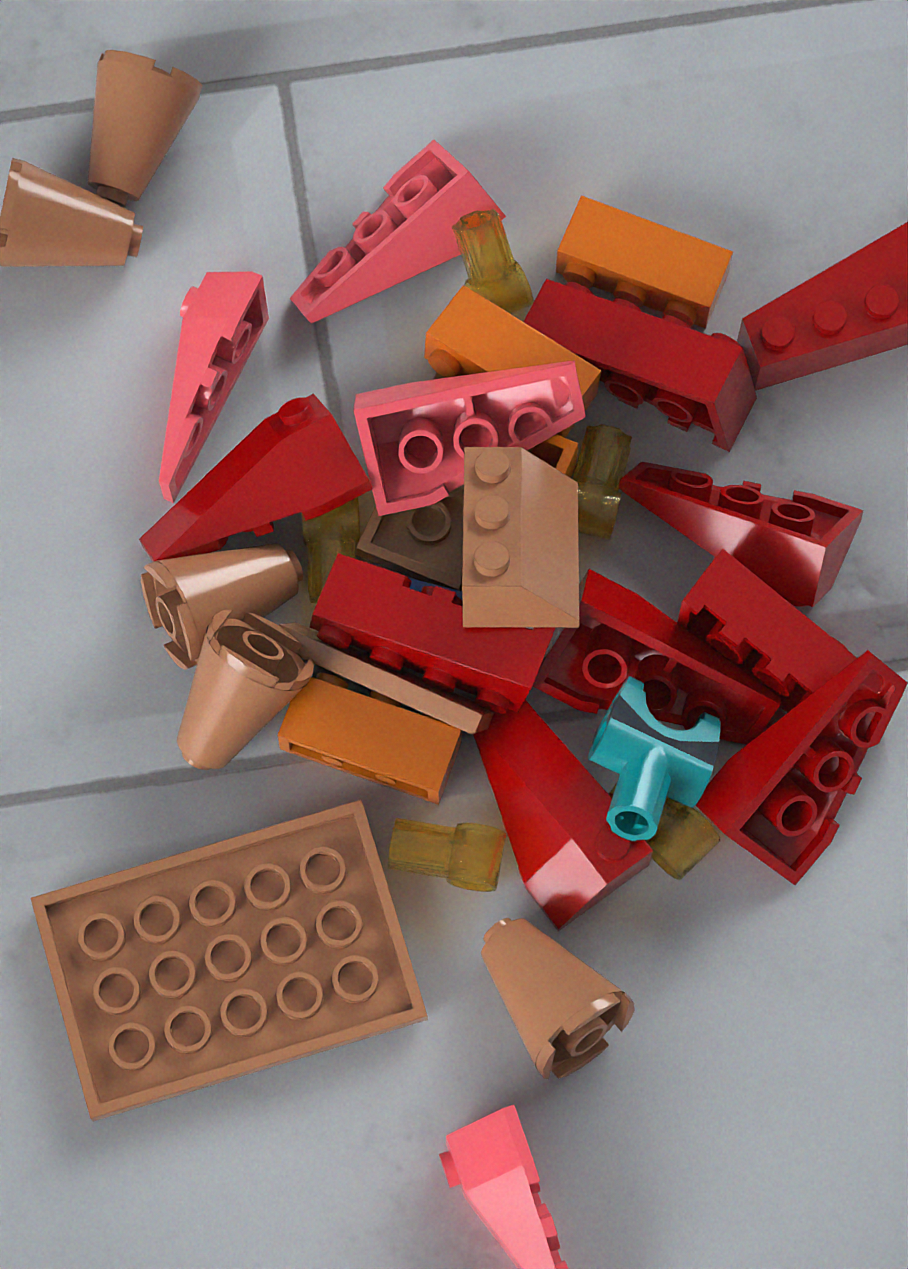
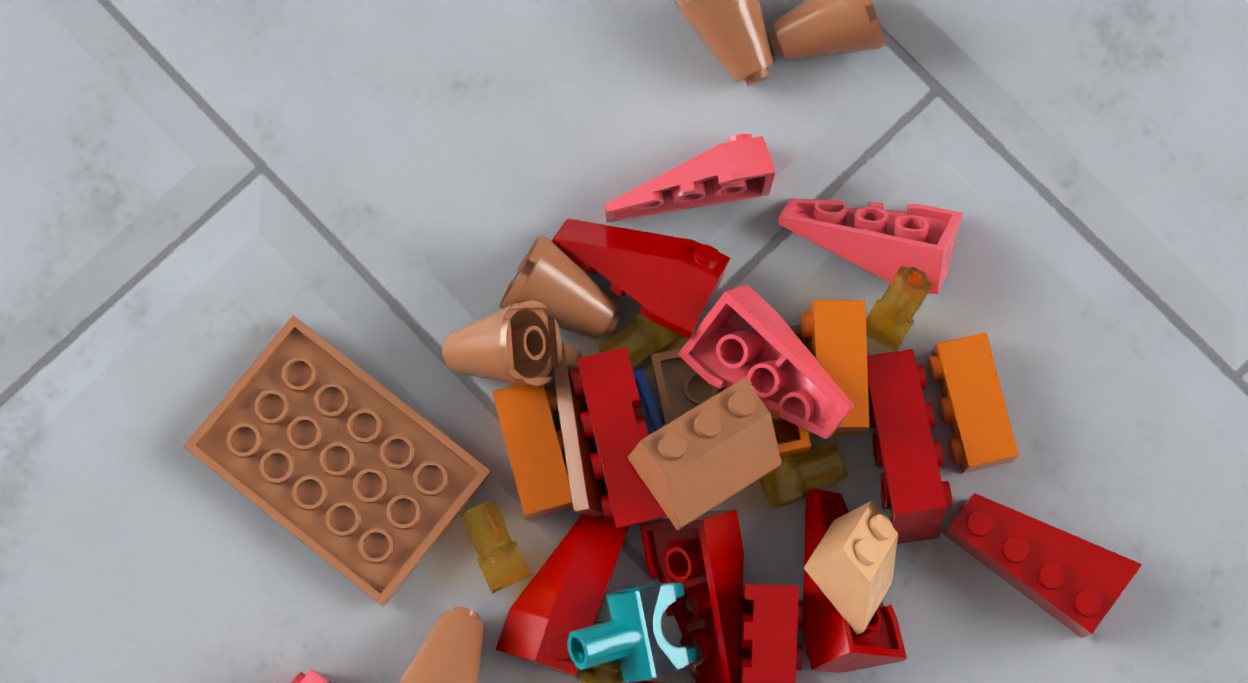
camera: 55 degrees right, 5 degrees up
(729, 482) = (856, 563): none -> light nougat slope

